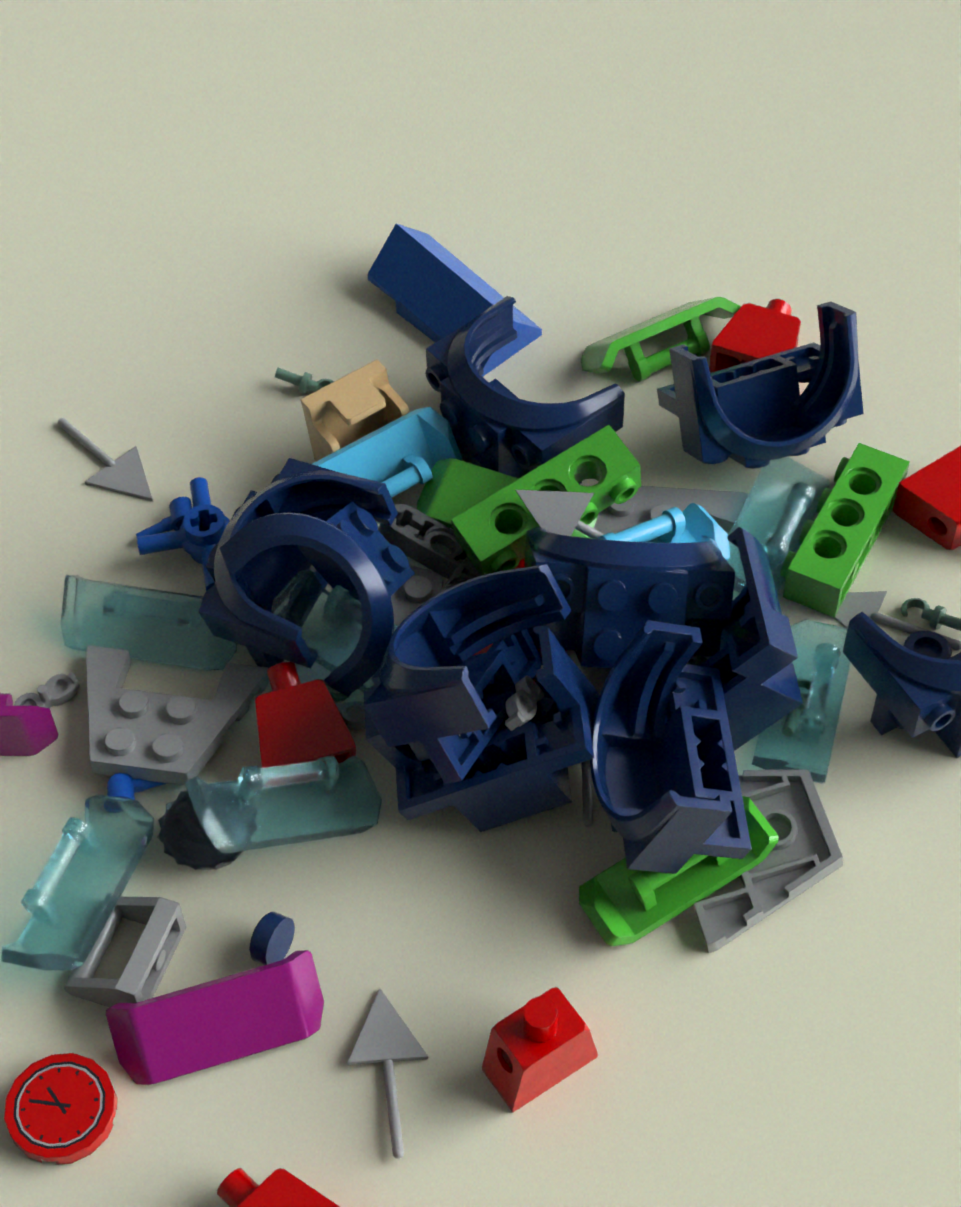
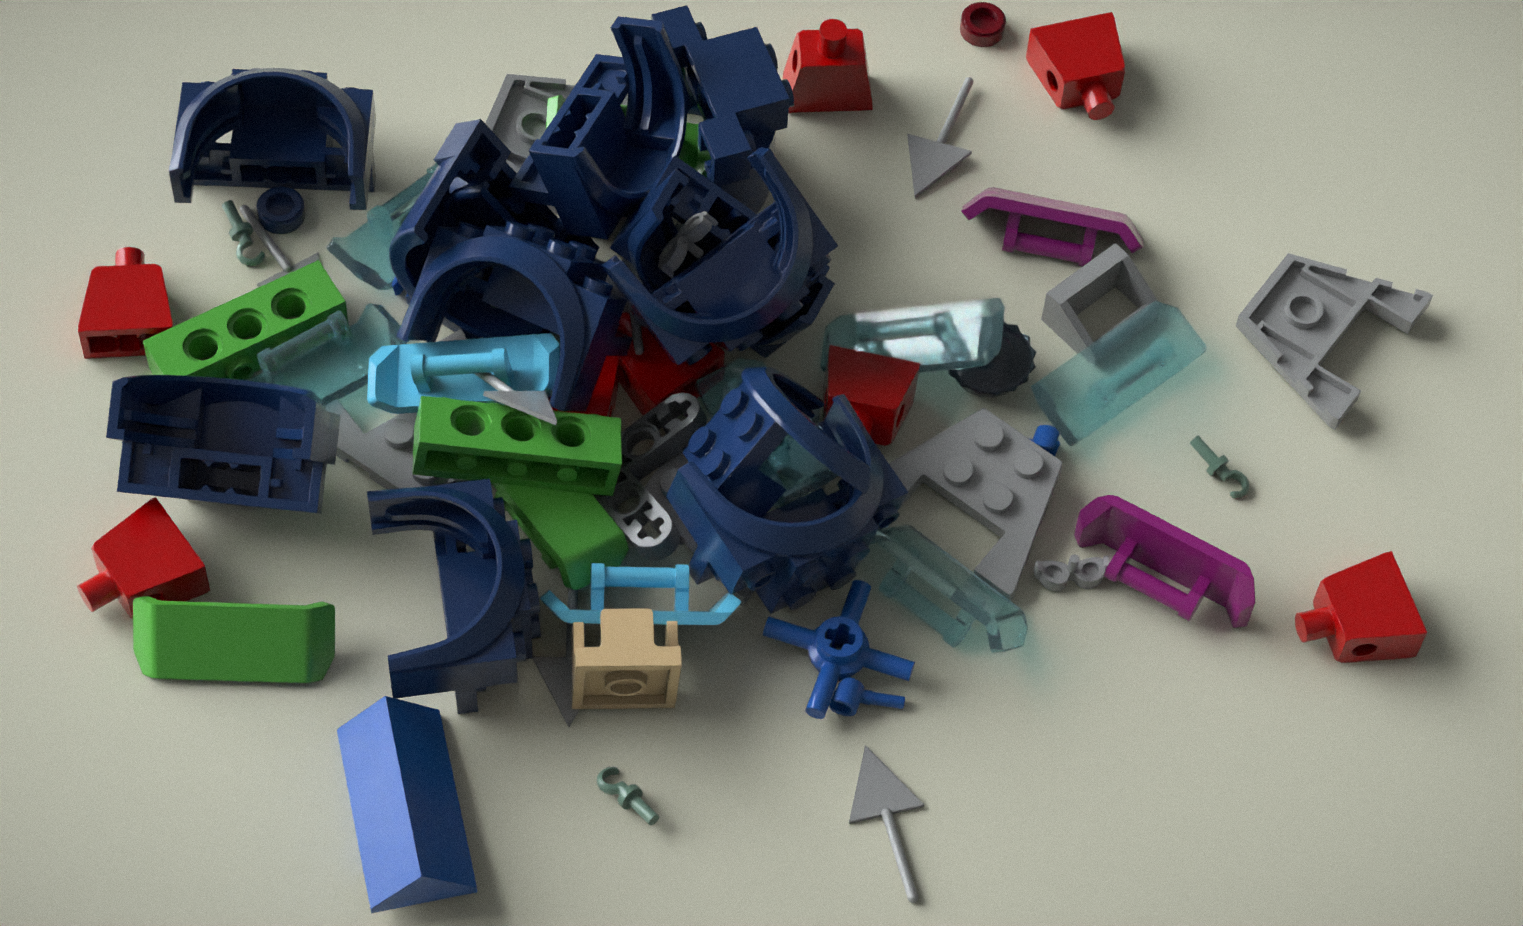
camera: 155 degrees left, 5 degrees up
(60, 1108) = (1202, 228): red tile -> none
(271, 938) = (981, 254): dark blue tile -> none
(585, 878) = (738, 96): none -> dark blue piece

